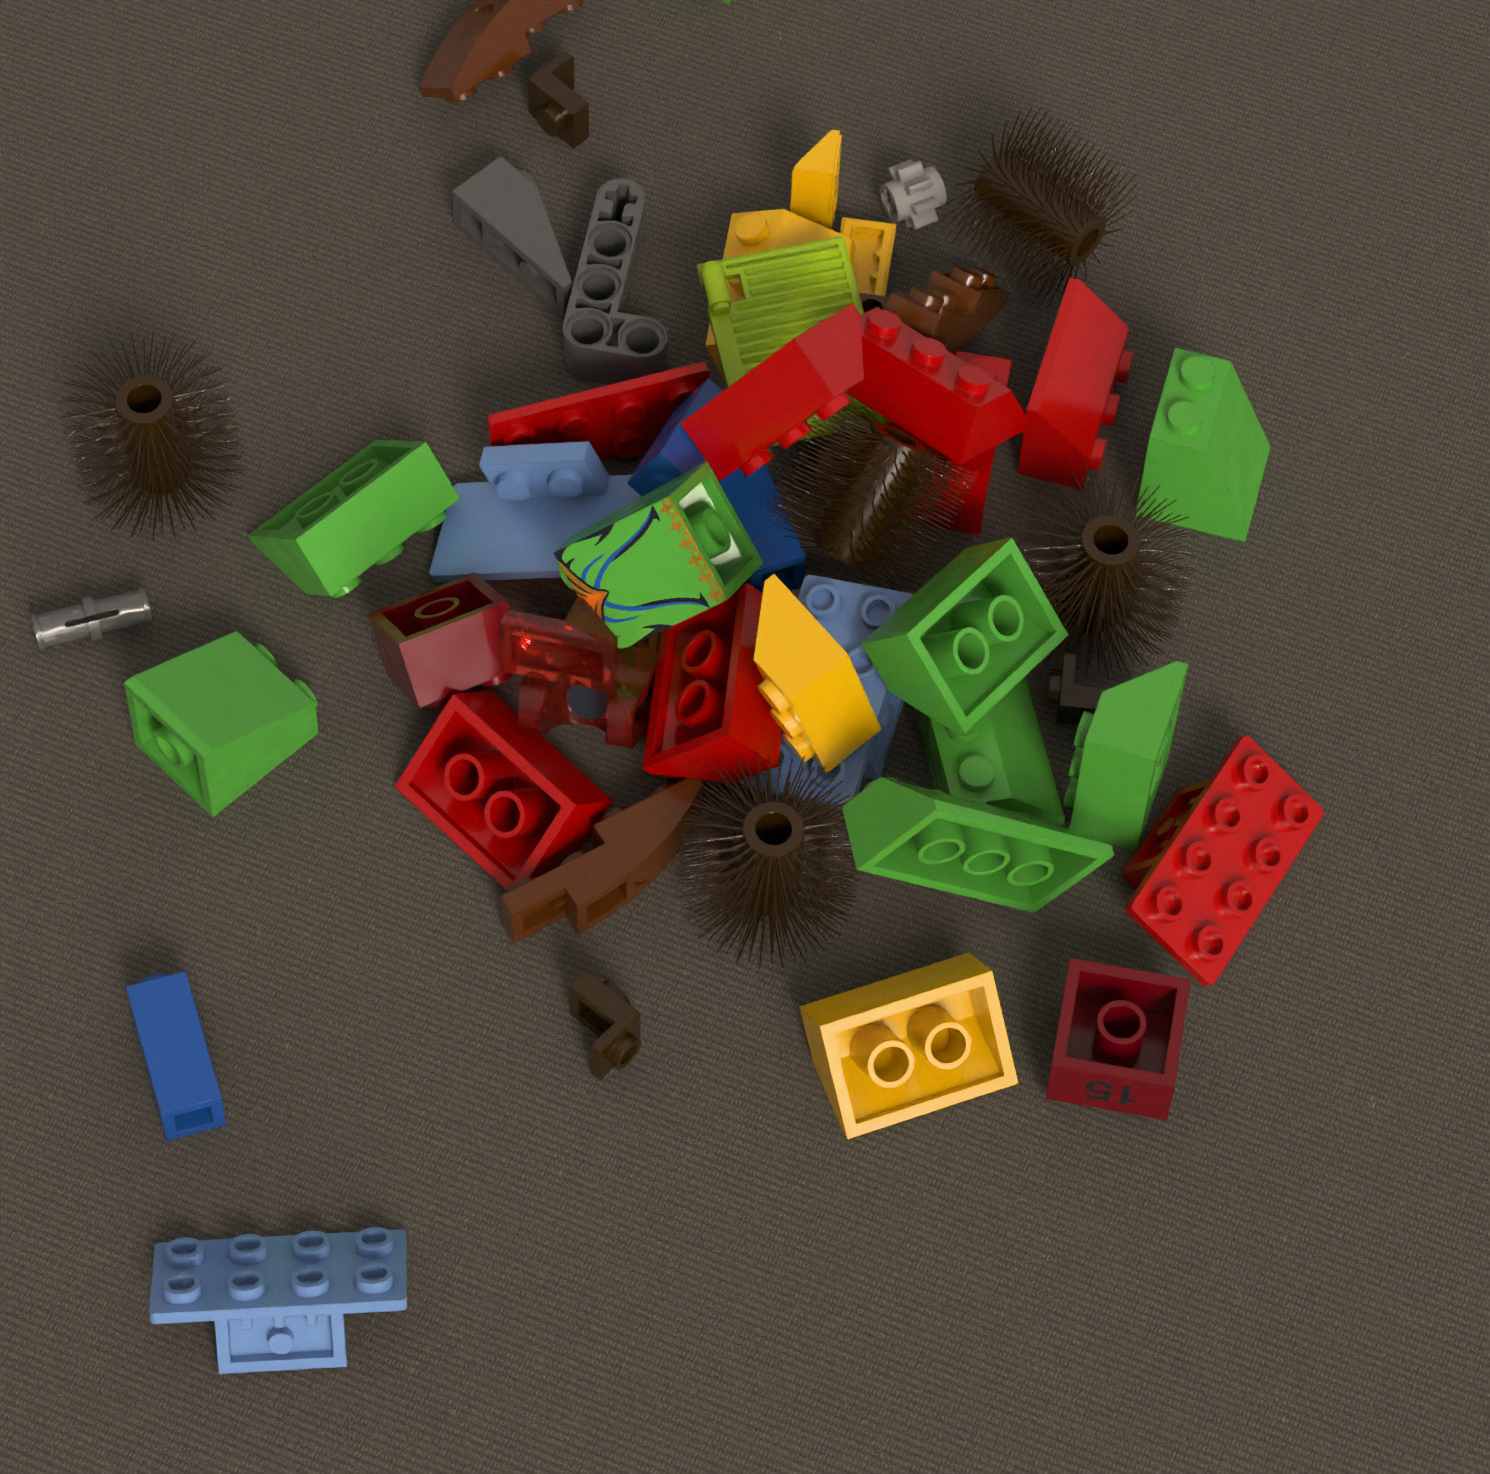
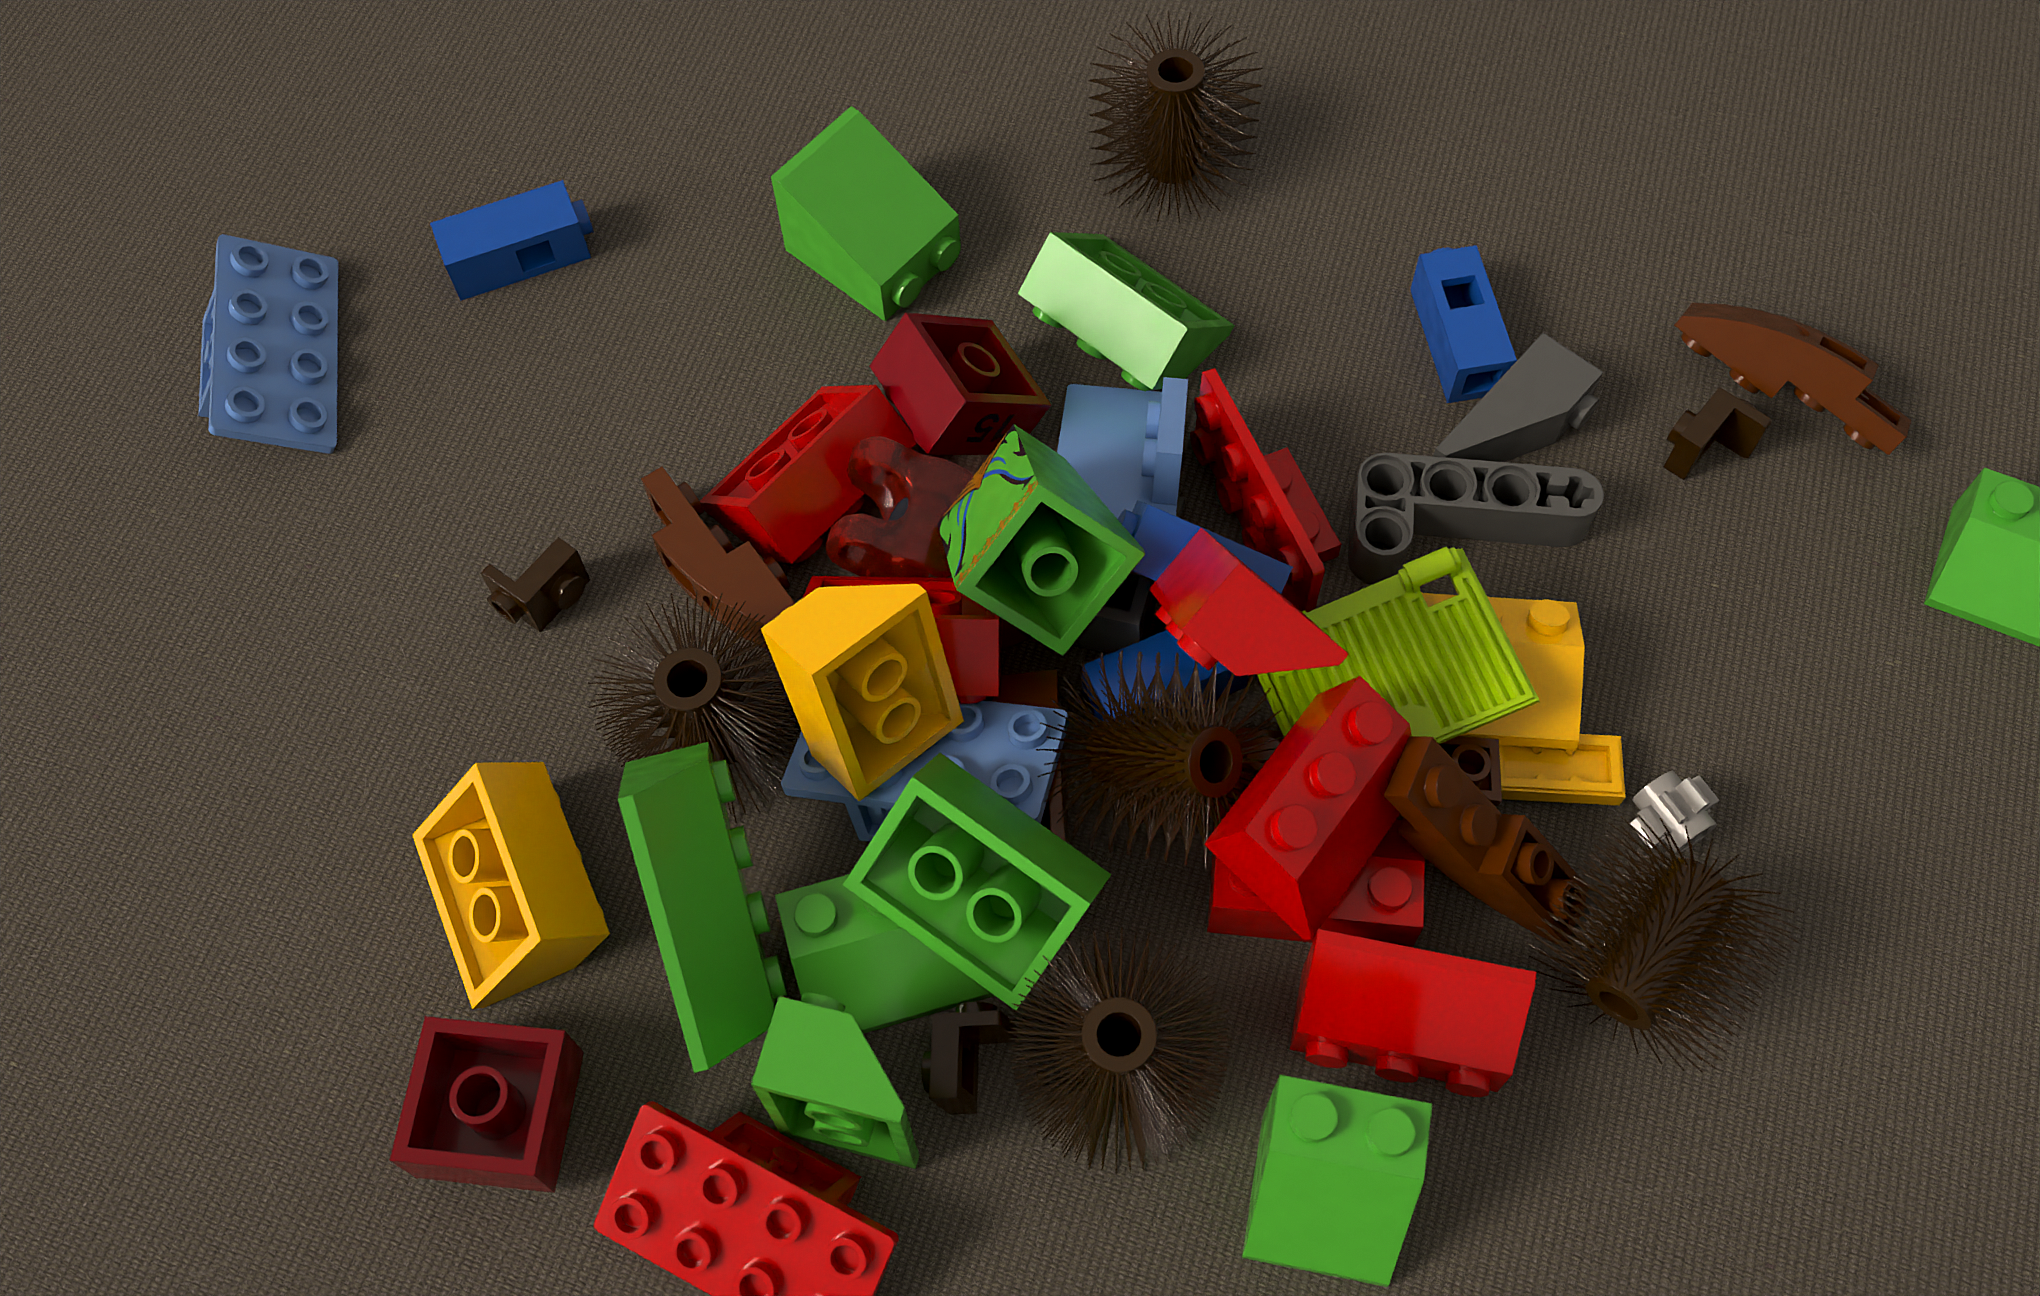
camera: 90 degrees right, 5 degrees up
(131, 610) = (984, 120): dark grey pin -> none
(413, 257) = (1461, 322): none -> blue brick
(565, 651) = (919, 471): clear red slope -> none
(817, 181) = (1644, 694): yellow slope -> none

